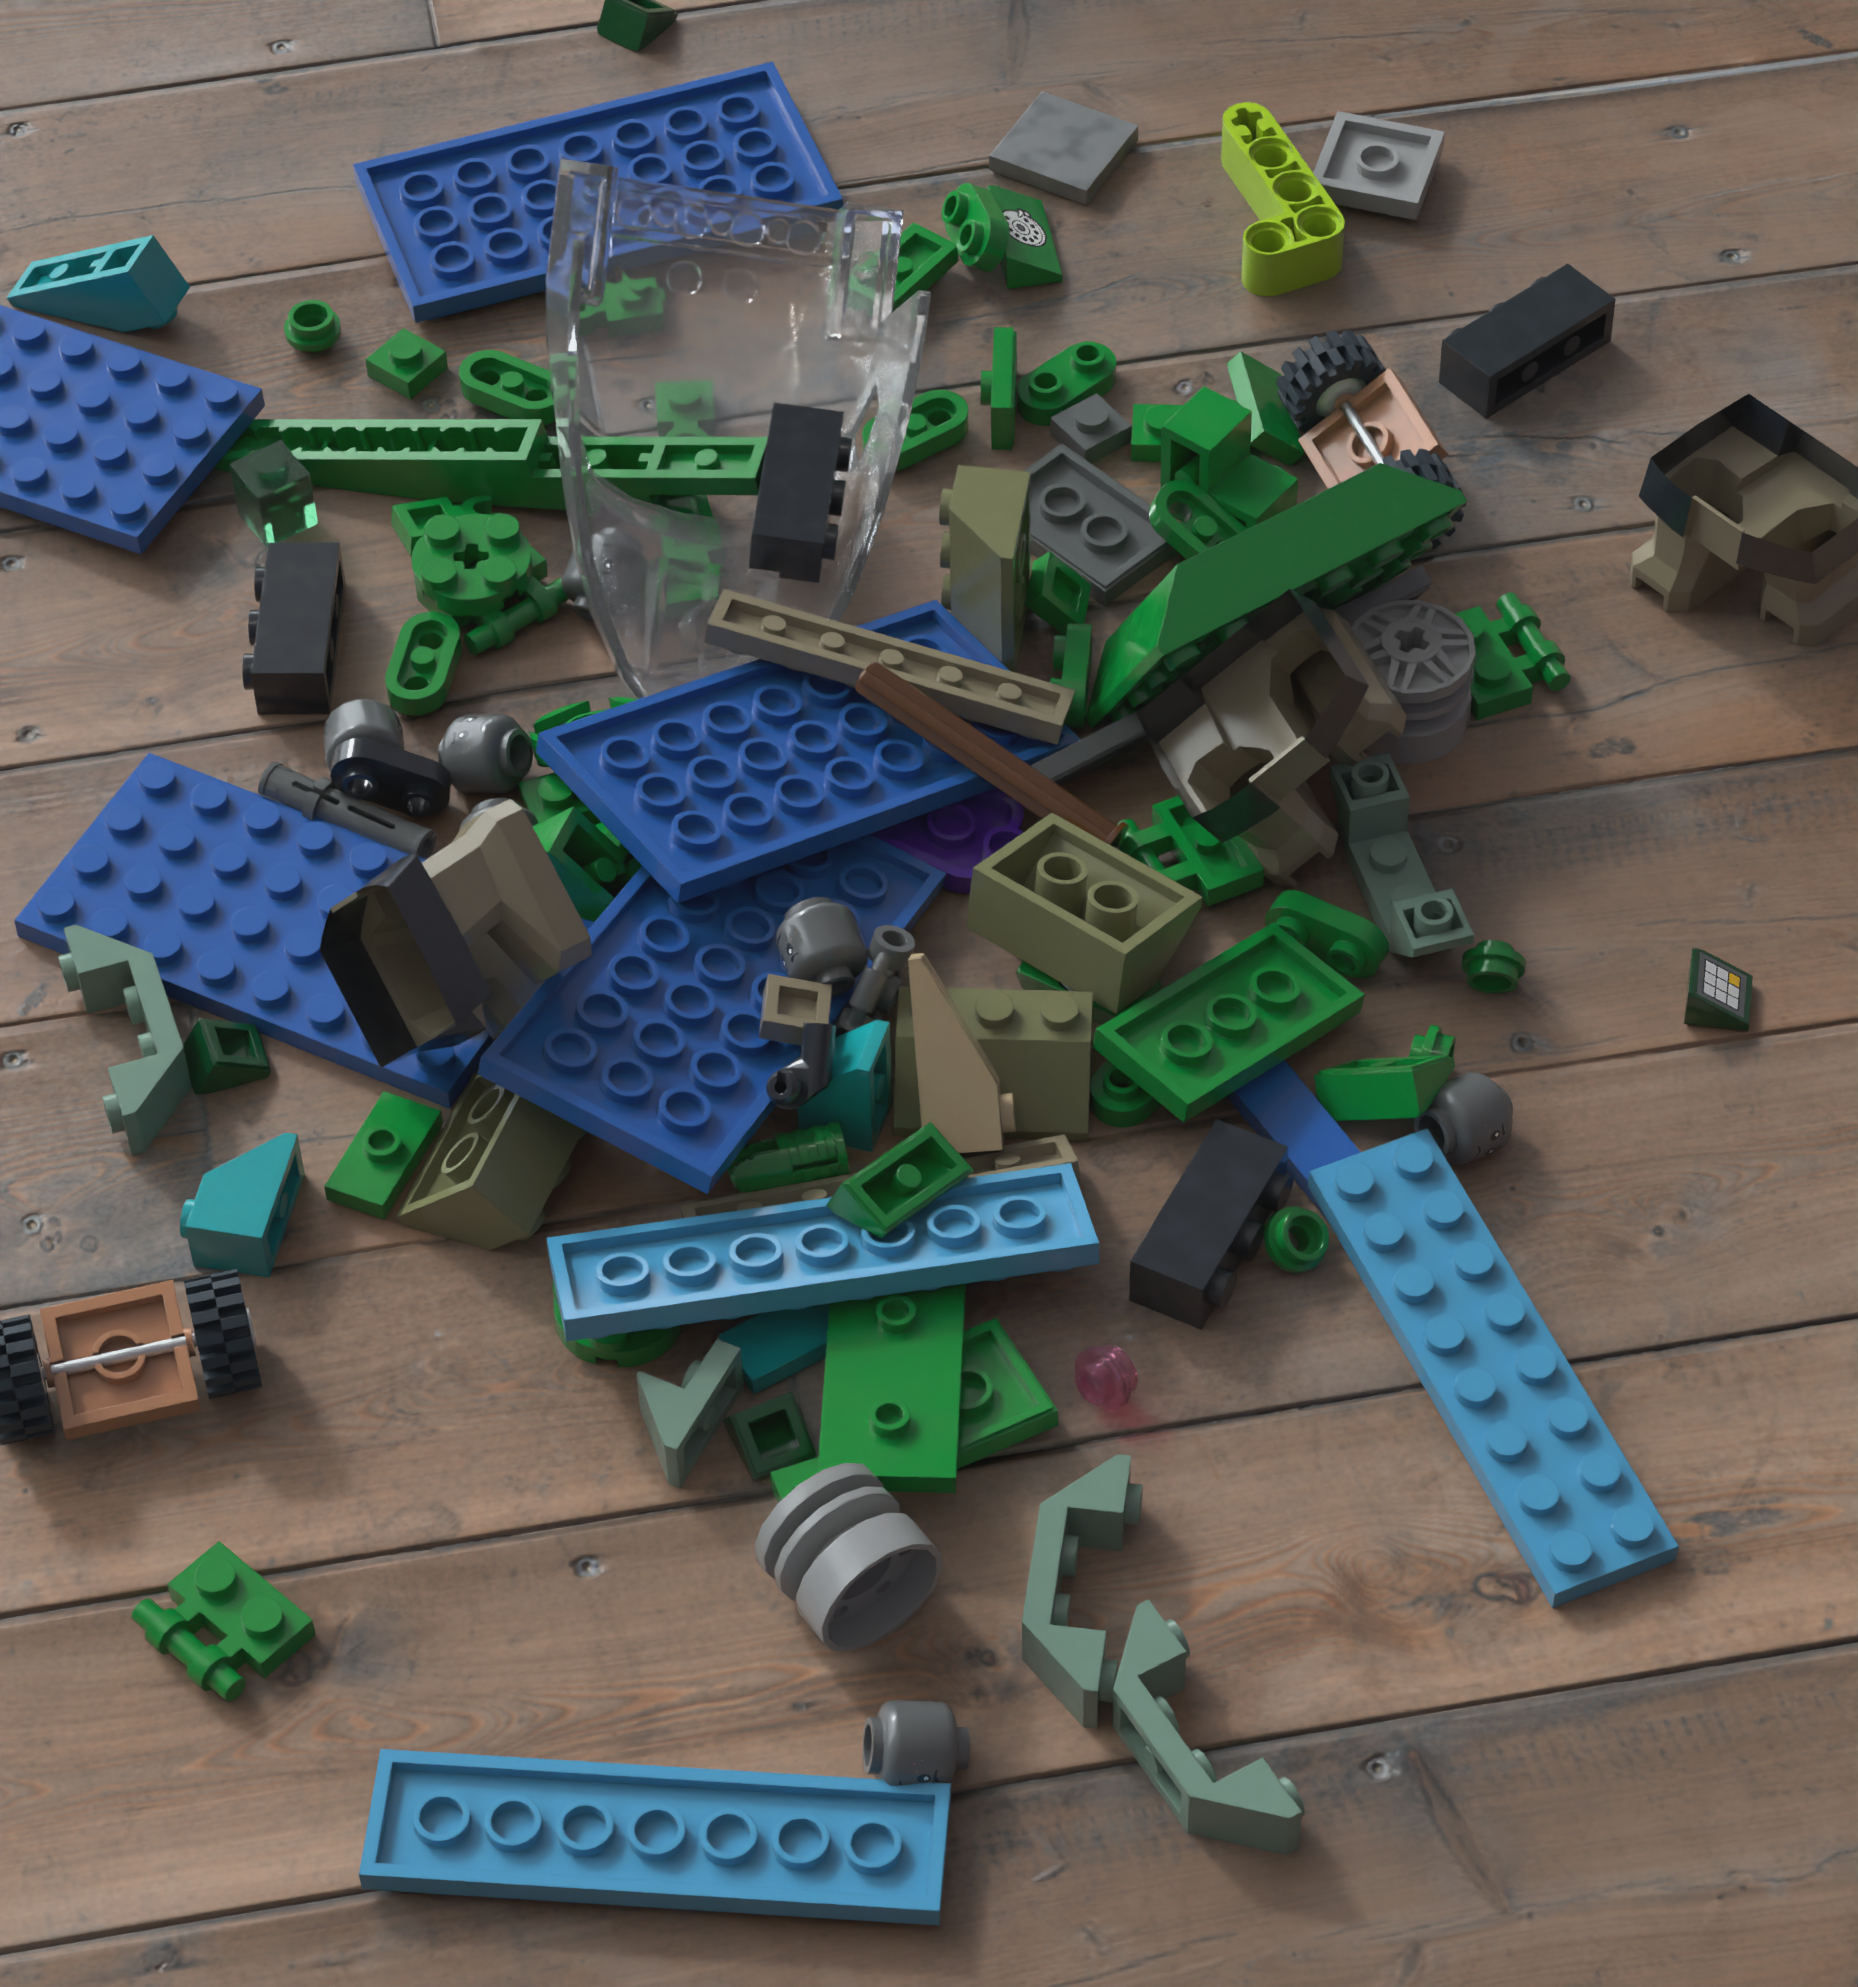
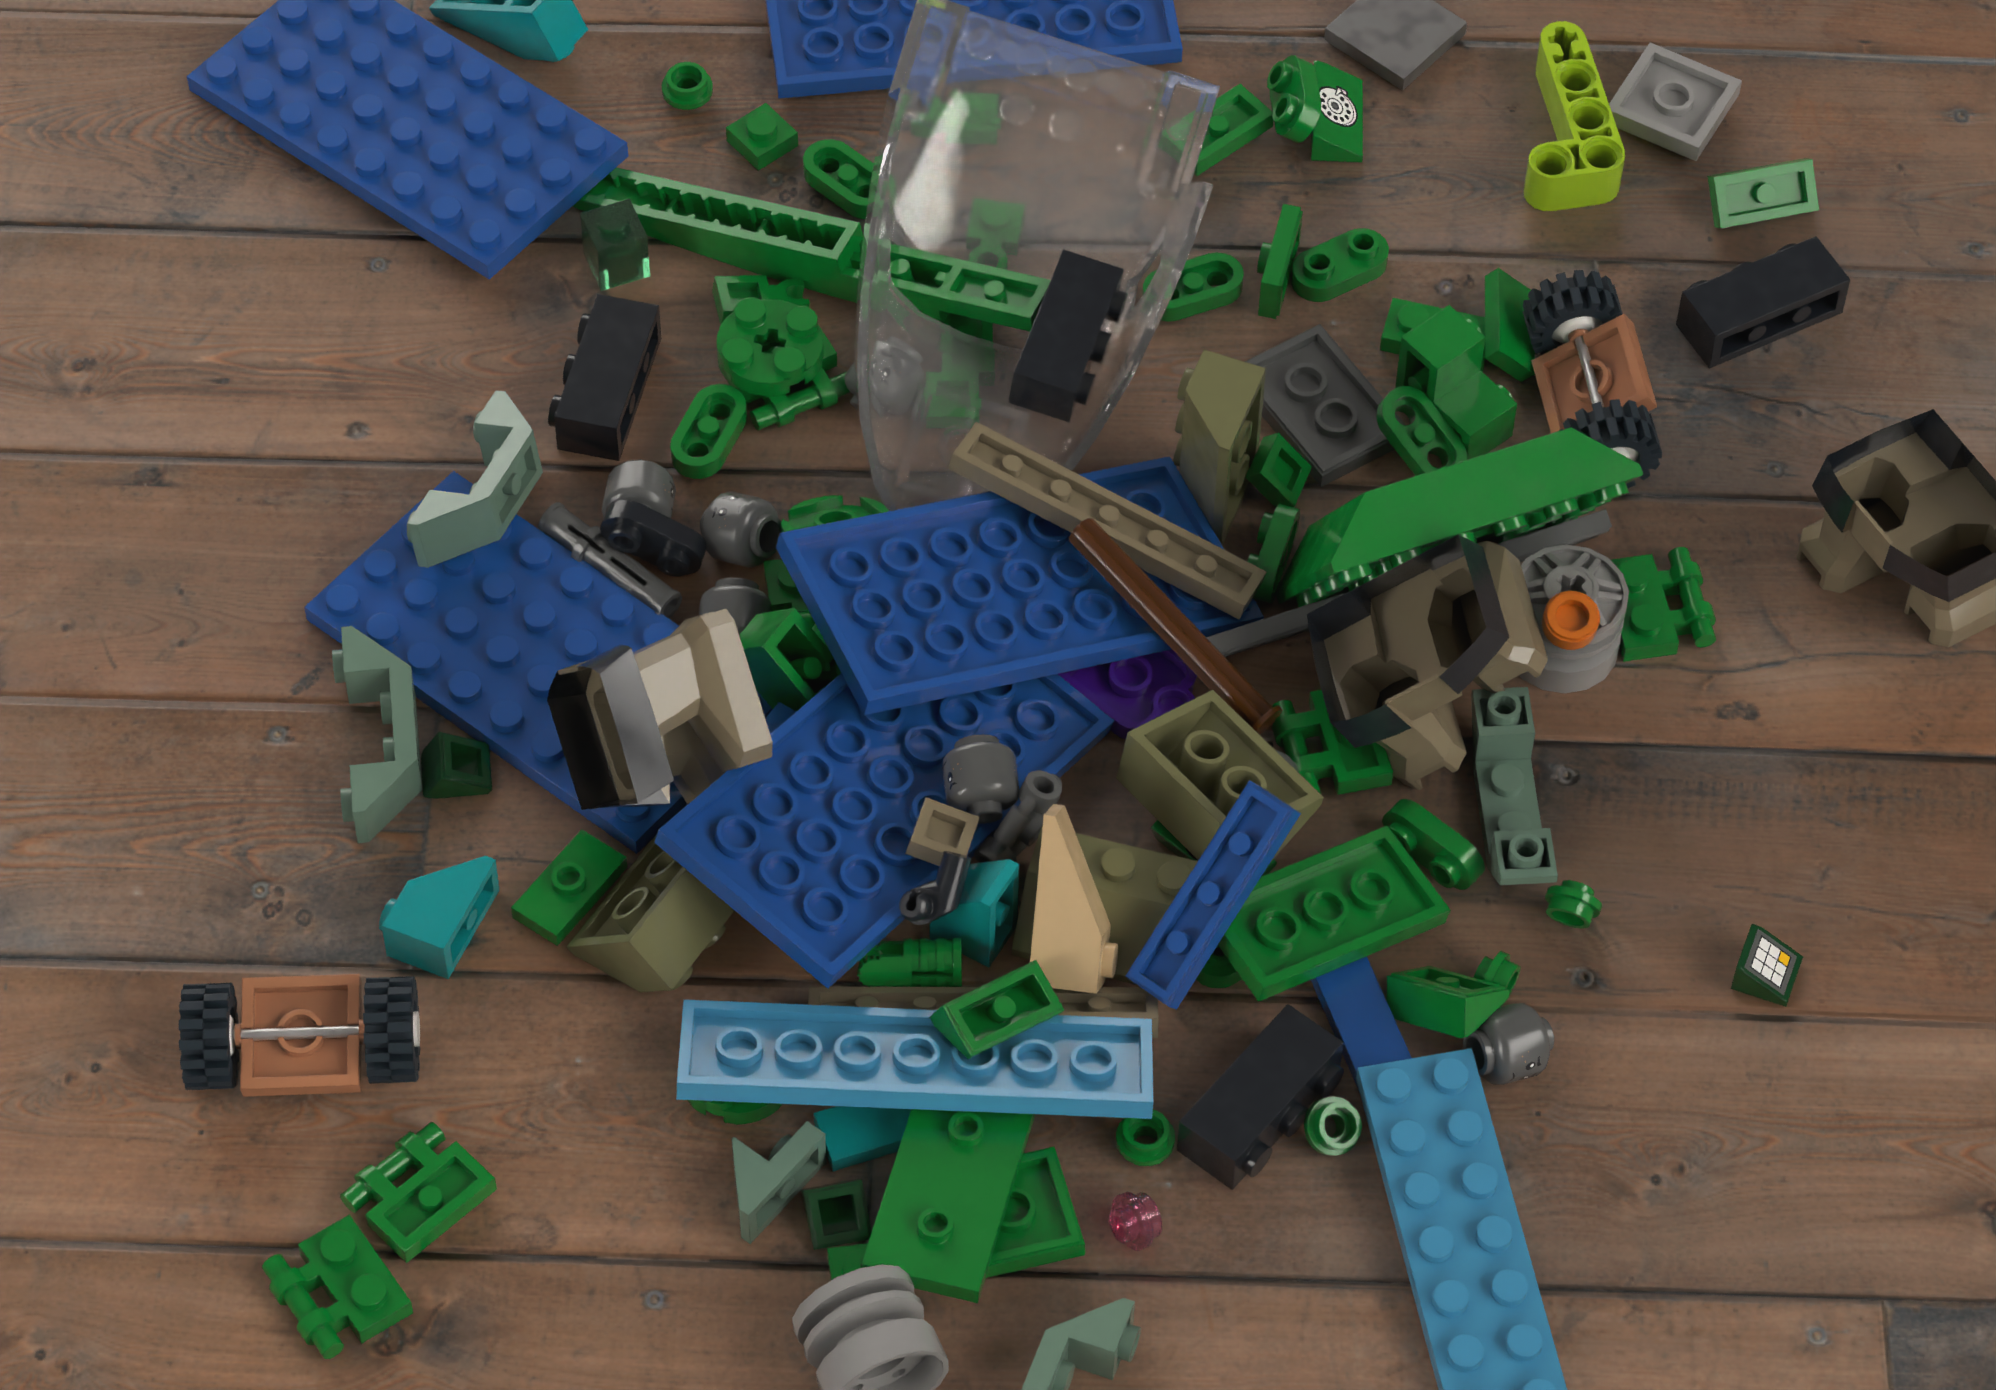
camera: 10 degrees right, 5 degrees up
(174, 795) = (458, 522): none -> sand green slope
(307, 1509) = (429, 1200): none -> green plate
(1091, 429) = (1350, 314): dark grey plate -> none
(1097, 1278) = (1145, 1154): none -> green plate
(1109, 1016) = (1213, 895): none -> blue tile
(1420, 672) = (1570, 620): none -> orange tile
(1497, 236) = (1763, 193): none -> green plate

